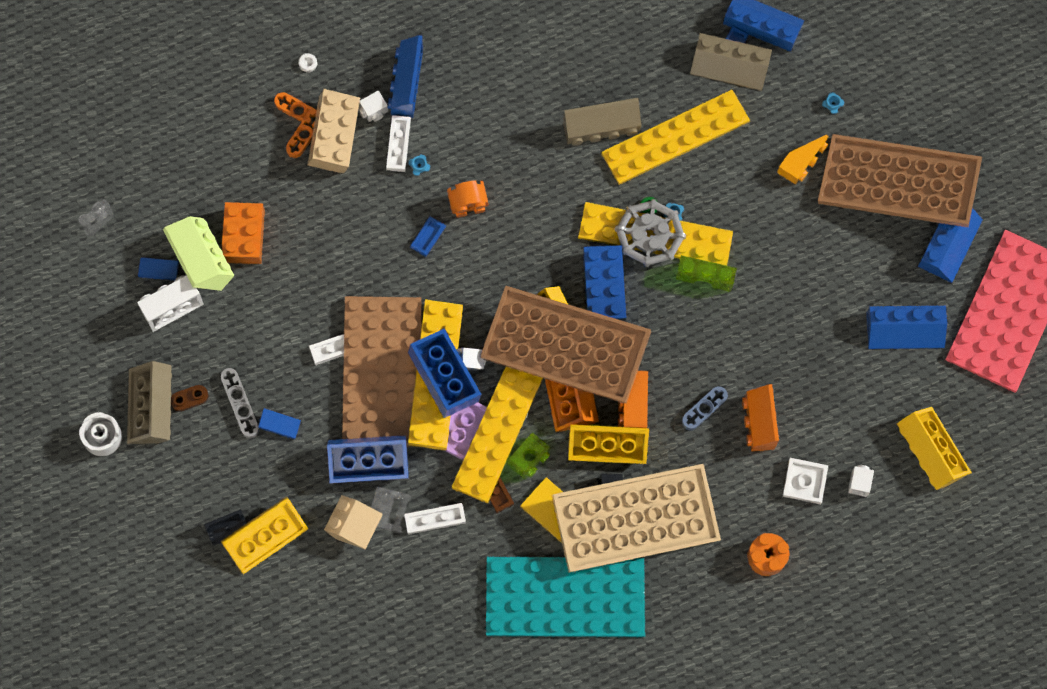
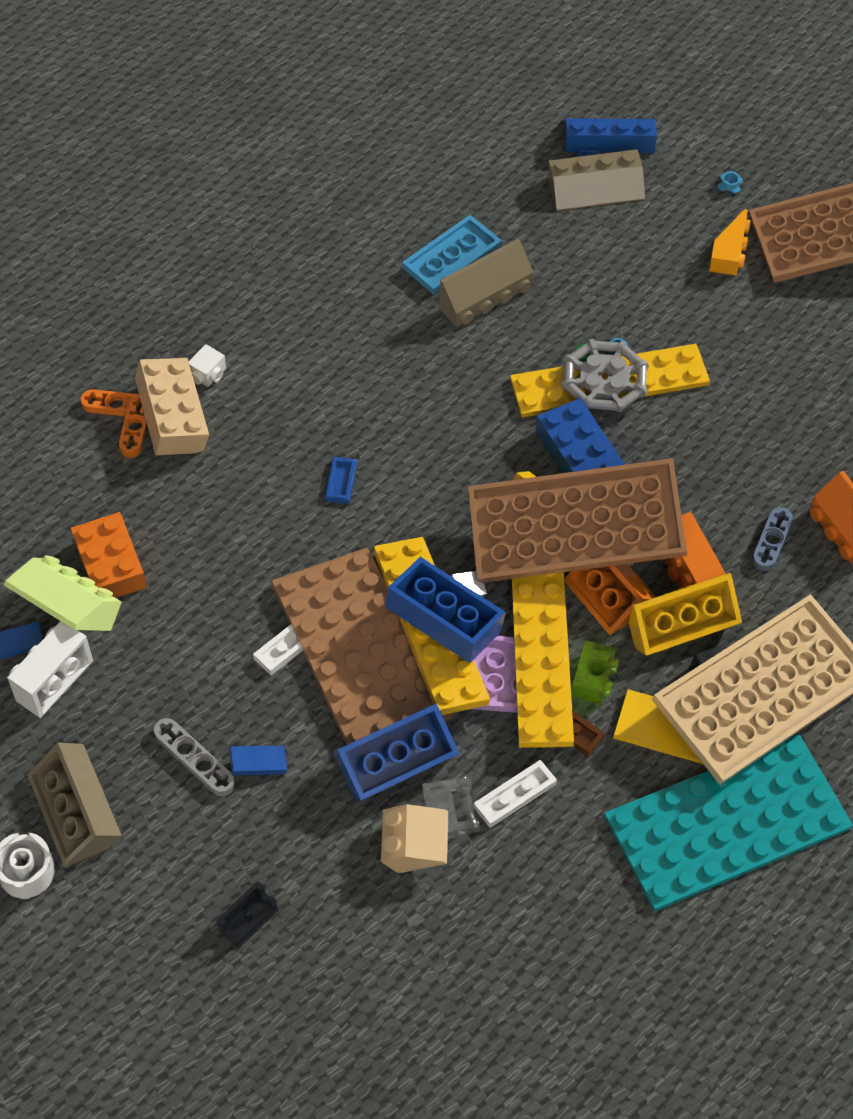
camera: 20 degrees left, 15 degrees down
(189, 398) = (125, 777): reddish brown plate -> none
(264, 535) = (303, 903): yellow tile -> none
(307, 62) = (103, 351): white tile -> none
(398, 143) = (256, 394): white plate -> none
(407, 77) = (233, 320): blue slope -> none
(421, 159) = (292, 402): dark azure plate -> none
(468, 197) = (370, 417): orange brick -> none
(592, 82) = (451, 252): none -> dark azure plate
(675, 137) = (575, 276): yellow plate -> none
(716, 274) = (673, 396): clear neon green arch -> none

